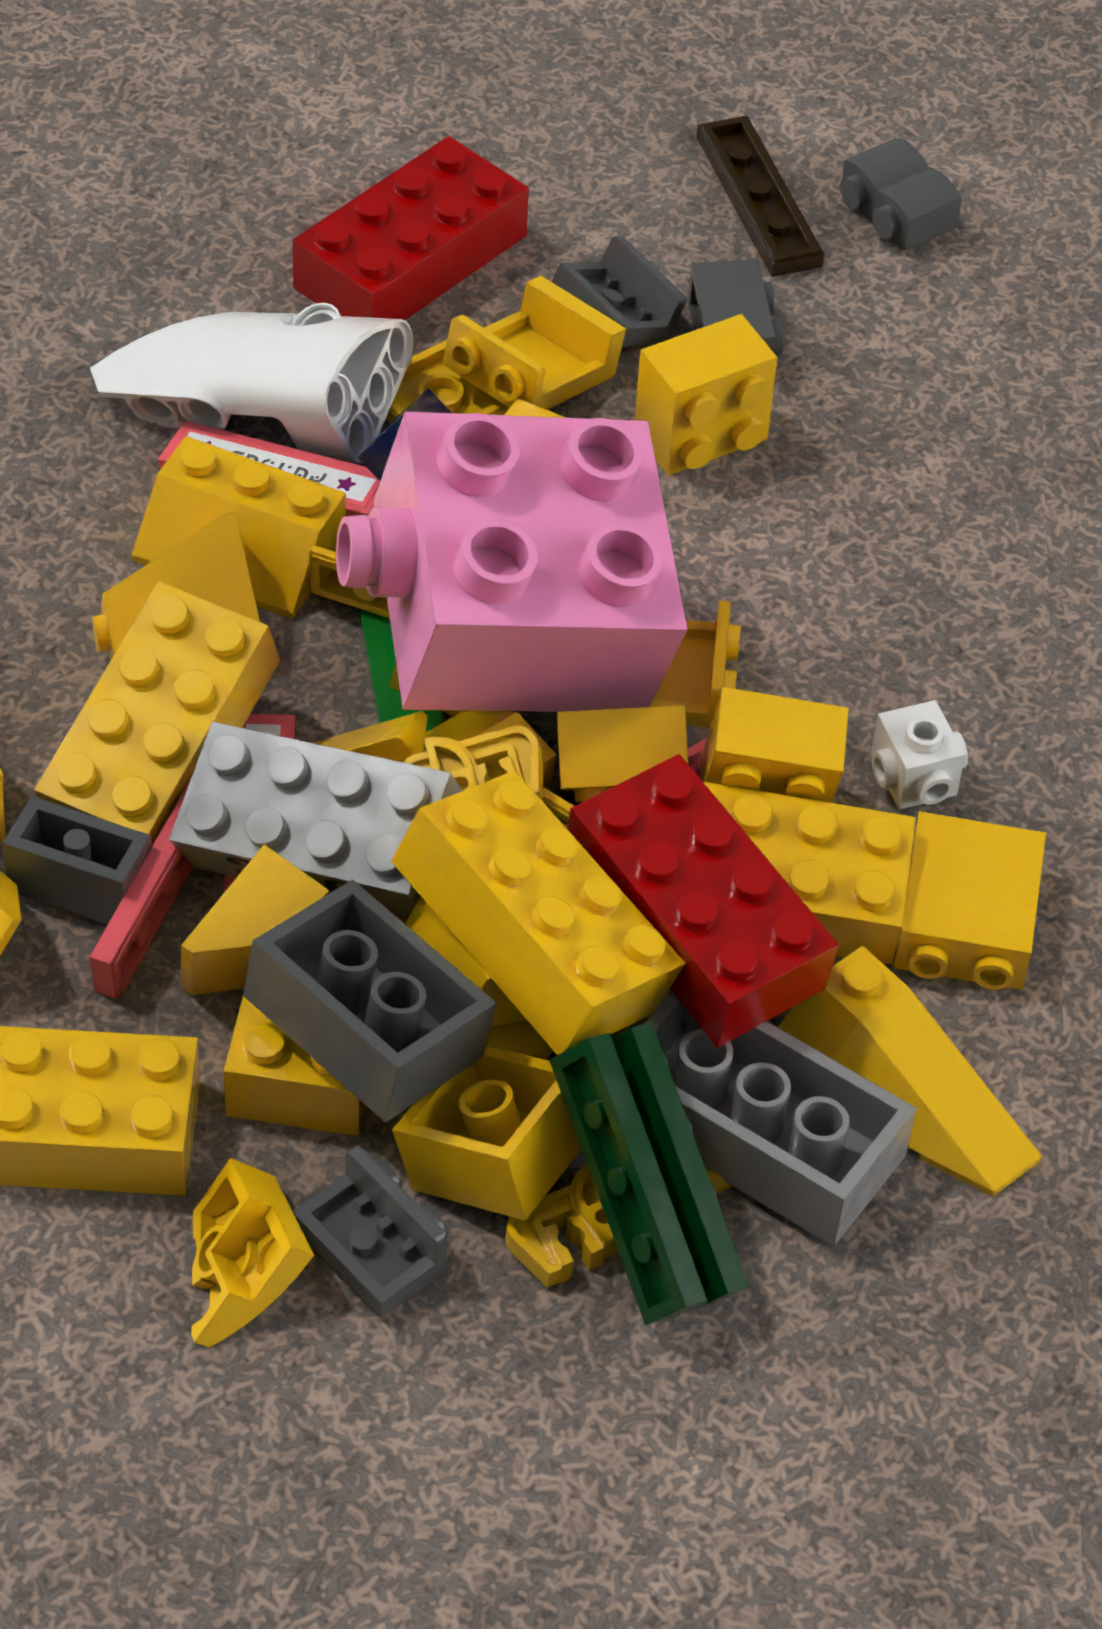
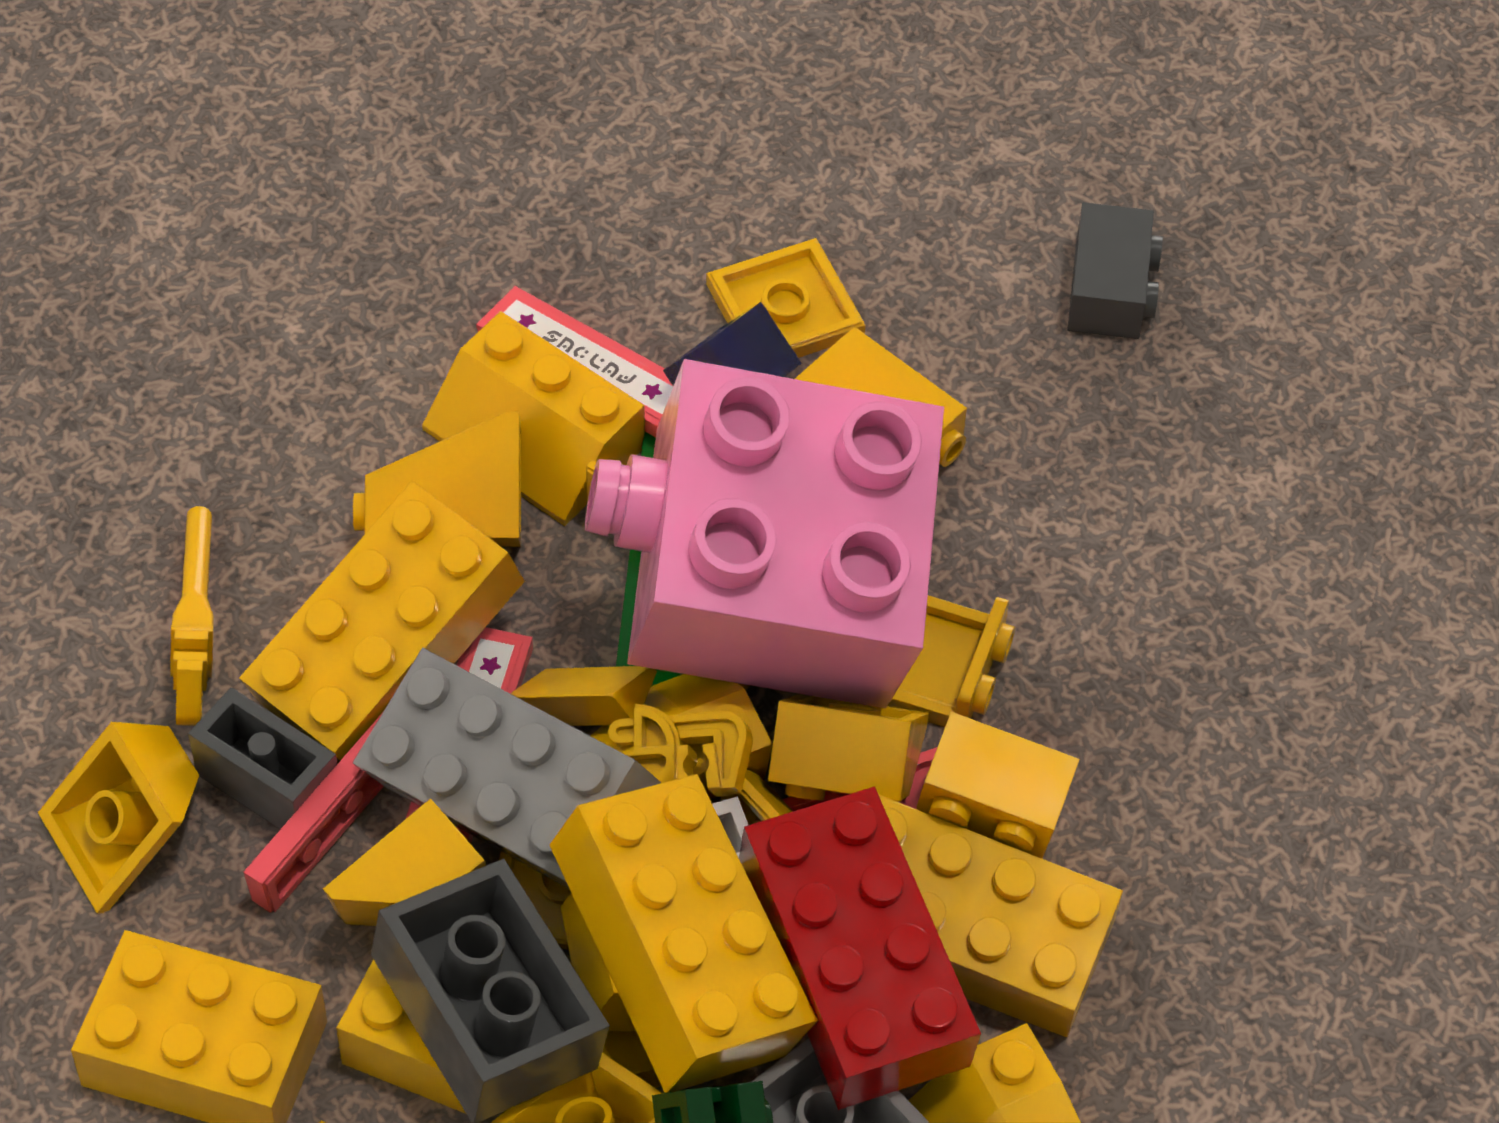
camera: 15 degrees right, 5 degrees up
(311, 370) = (636, 251): white panel -> none
(412, 235) = (801, 119): red brick -> none
(538, 353) = (894, 273): yellow panel -> none
(626, 291) = (1003, 224): dark grey bracket -> none
(706, 393) = (1051, 358): yellow brick -> none
(760, 196) = (1187, 129): dark brown tile -> none
(900, 193) = (1335, 155): dark grey brick -> none
(917, 755) = (1157, 812): white brick -> none
(971, 901) = (1163, 988): yellow panel -> none

